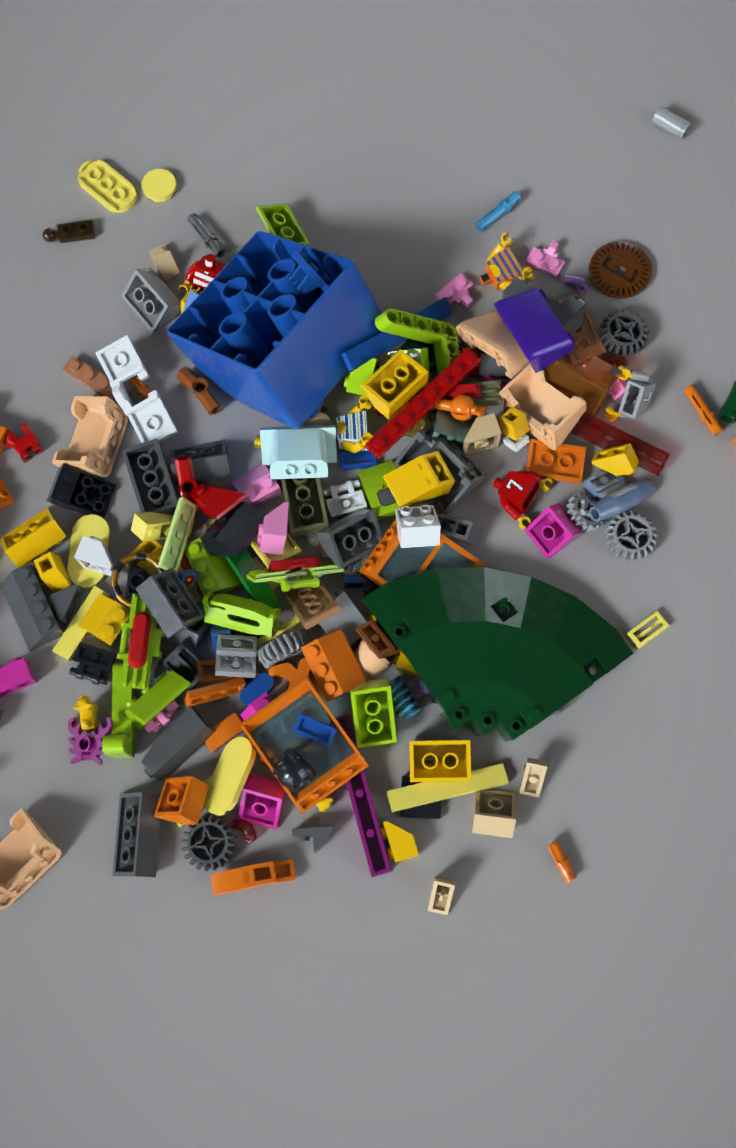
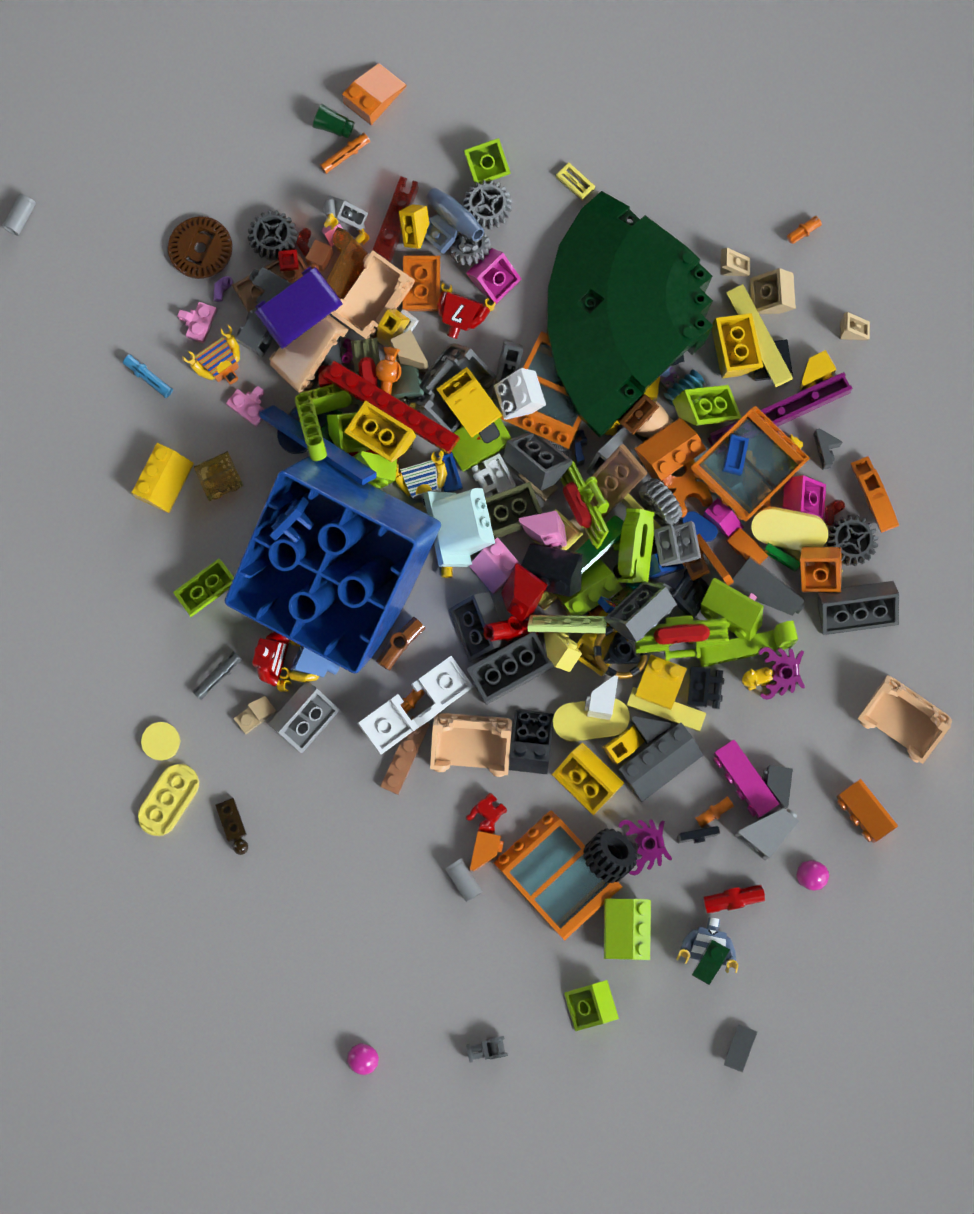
camera: 100 degrees left, 5 degrees up
(207, 764) = (782, 557): none -> green tile
(293, 770) = (778, 463): black helmet -> none
(390, 256) = (218, 476): none -> clear yellow slope
(397, 210) = (162, 478): none -> yellow slope
(594, 341) = (288, 260): none -> red plate
(678, 541) = (487, 161): none -> lime slope

